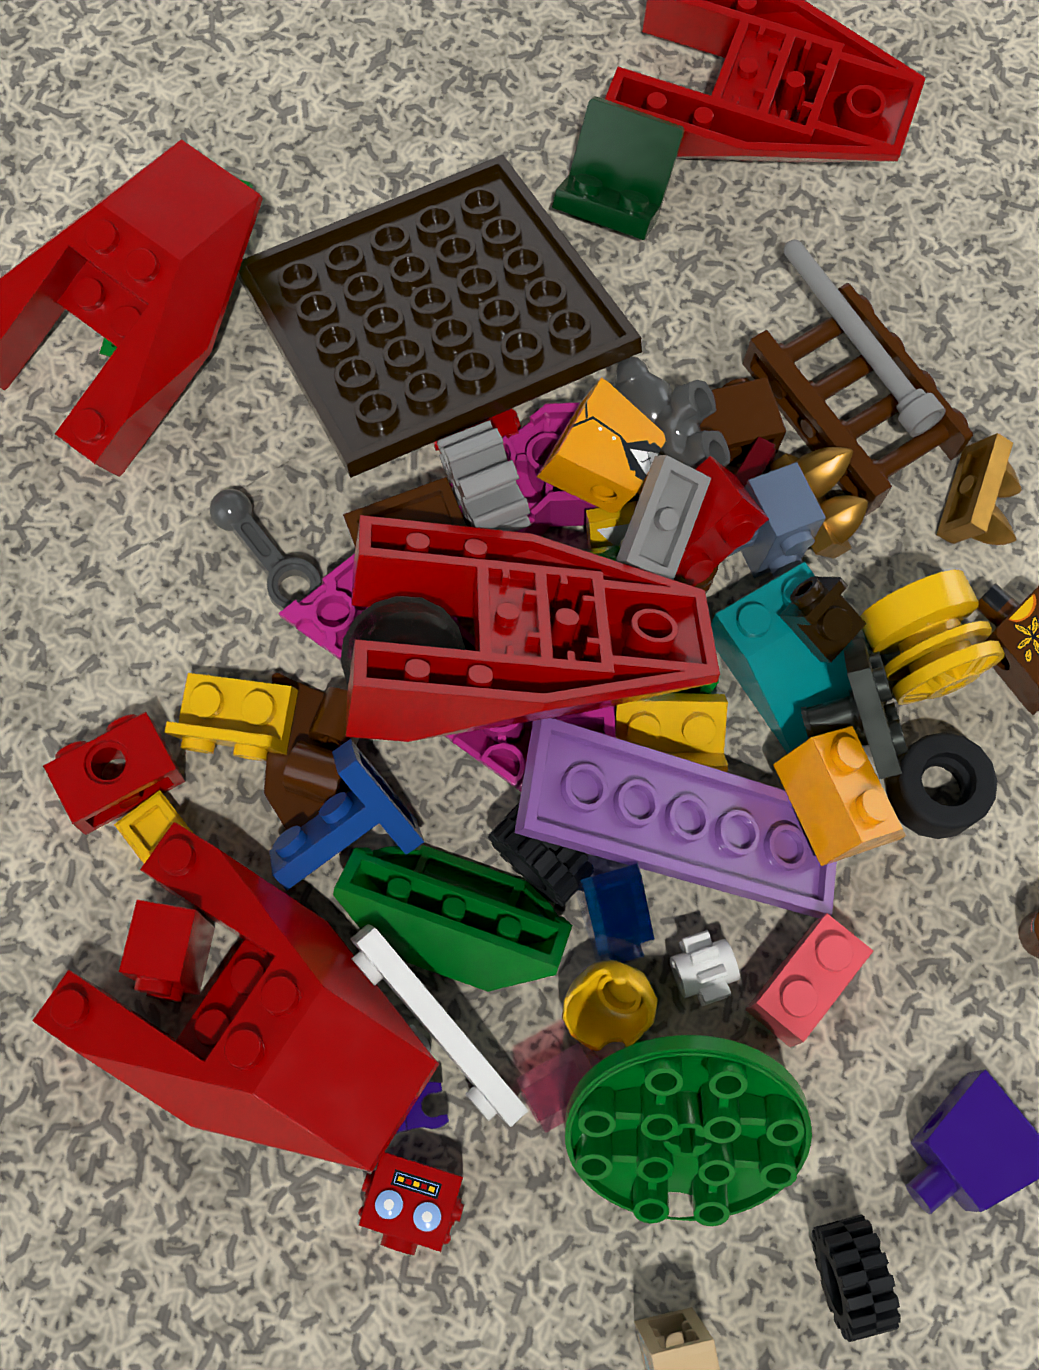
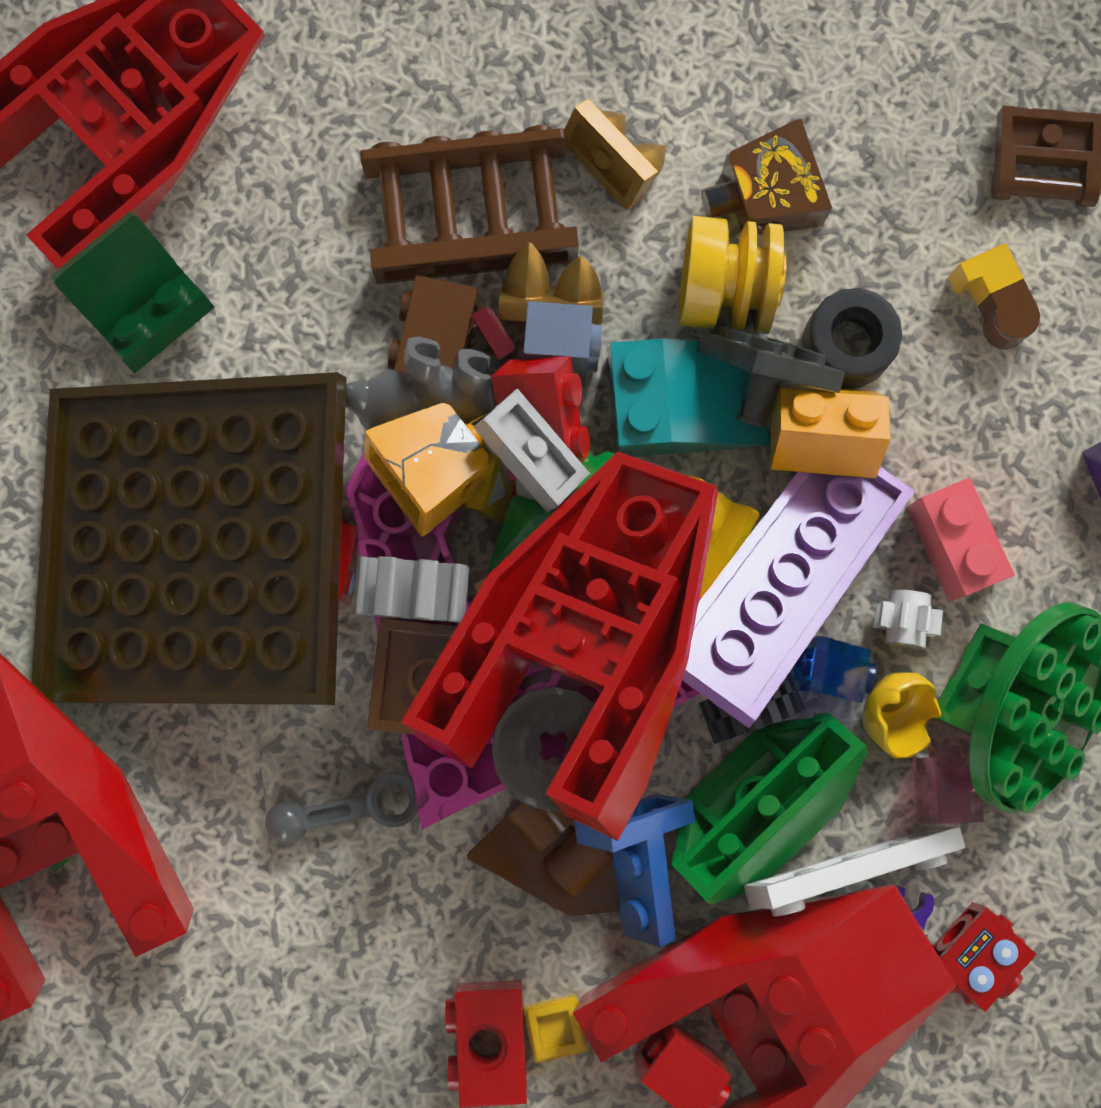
camera: 60 degrees left, 10 degrees up
(234, 714) = (492, 912): yellow bracket -> none
(822, 616) = (672, 357): dark brown bracket -> none
(916, 408) = (514, 162): light grey piece -> none

